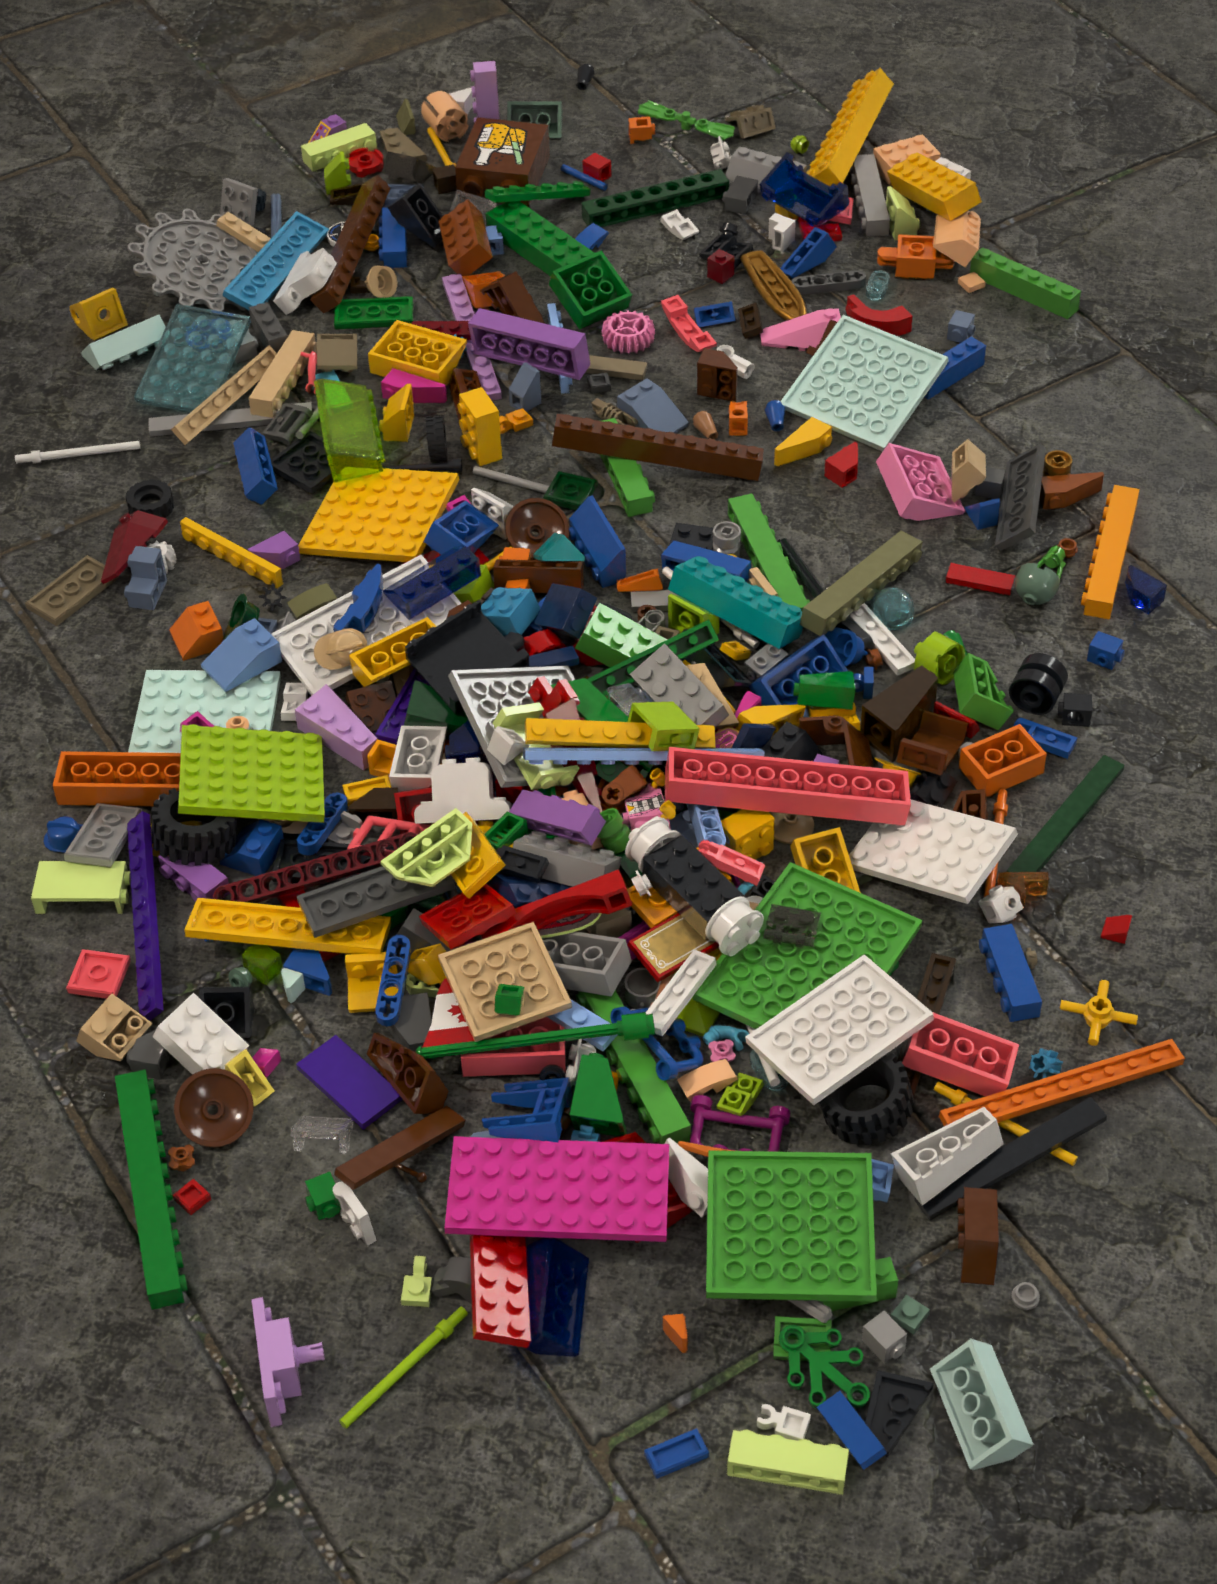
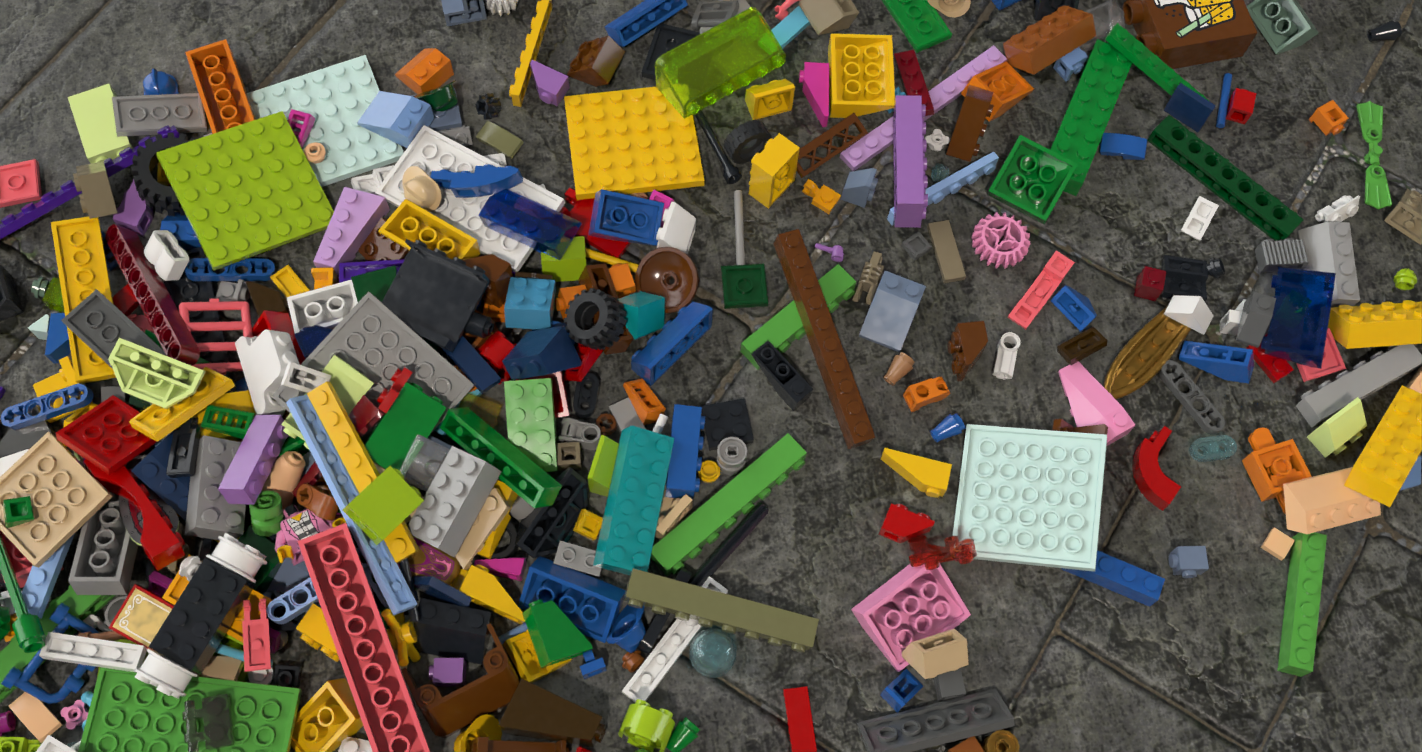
camera: 60 degrees right, 20 degrees up
(171, 885) = (96, 190): none -> dark tan brick
(276, 513) = (596, 61): none -> reddish brown slope
(283, 851) = (166, 255): none -> white brick
(555, 549) = (581, 314): none -> black tyre
(582, 188) = (1189, 107): none -> dark blue tile
(678, 488) = (782, 376): none -> black slope
(759, 252) = (1190, 312): none -> white slope
(791, 213) = (1255, 319): none -> dark grey slope
(884, 437) = (954, 550): none -> clear red plant

